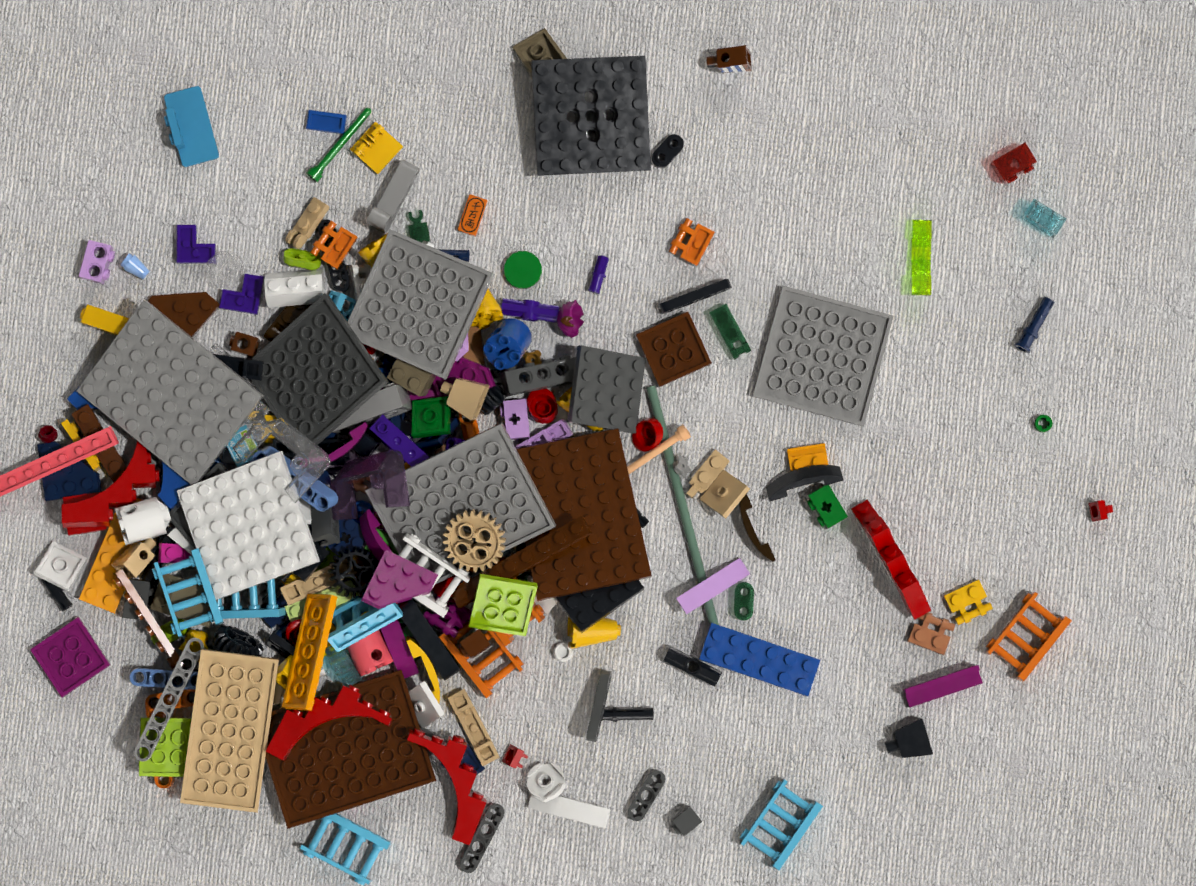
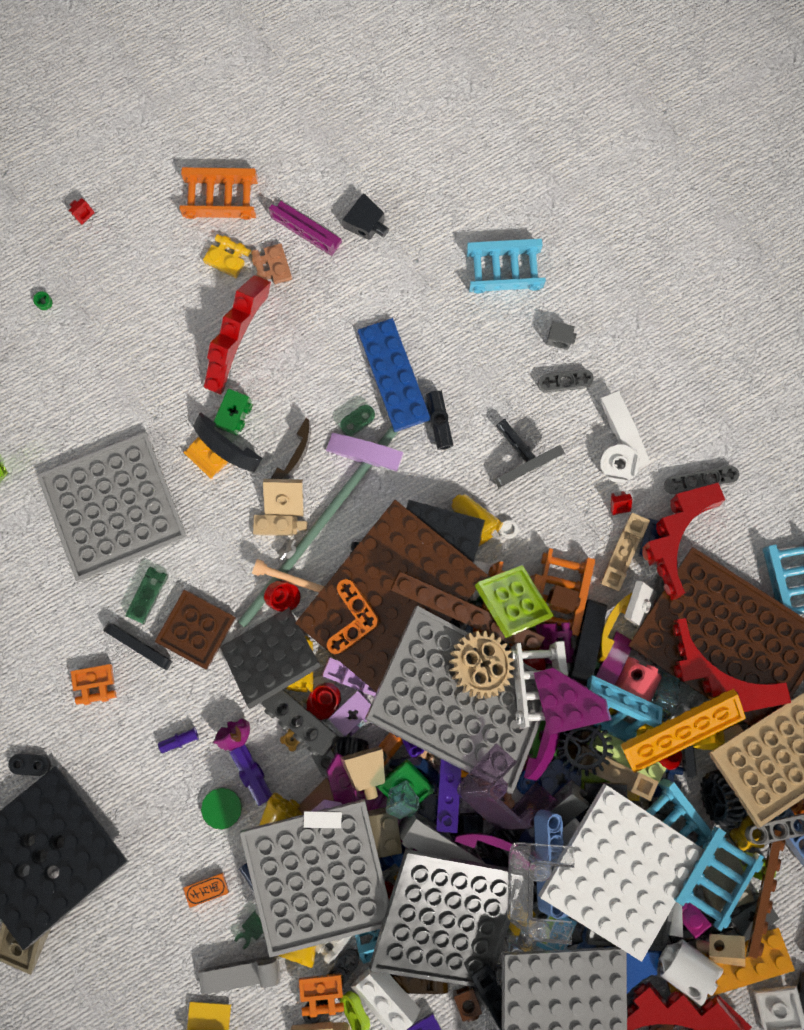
camera: 135 degrees left, 5 degrees down
(422, 406) = (402, 801): none -> clear light blue slope
(455, 338) = (322, 819): none -> white sticker
(507, 343) = (293, 770): blue cylinder -> none
(578, 475) = (358, 623): none -> orange beam

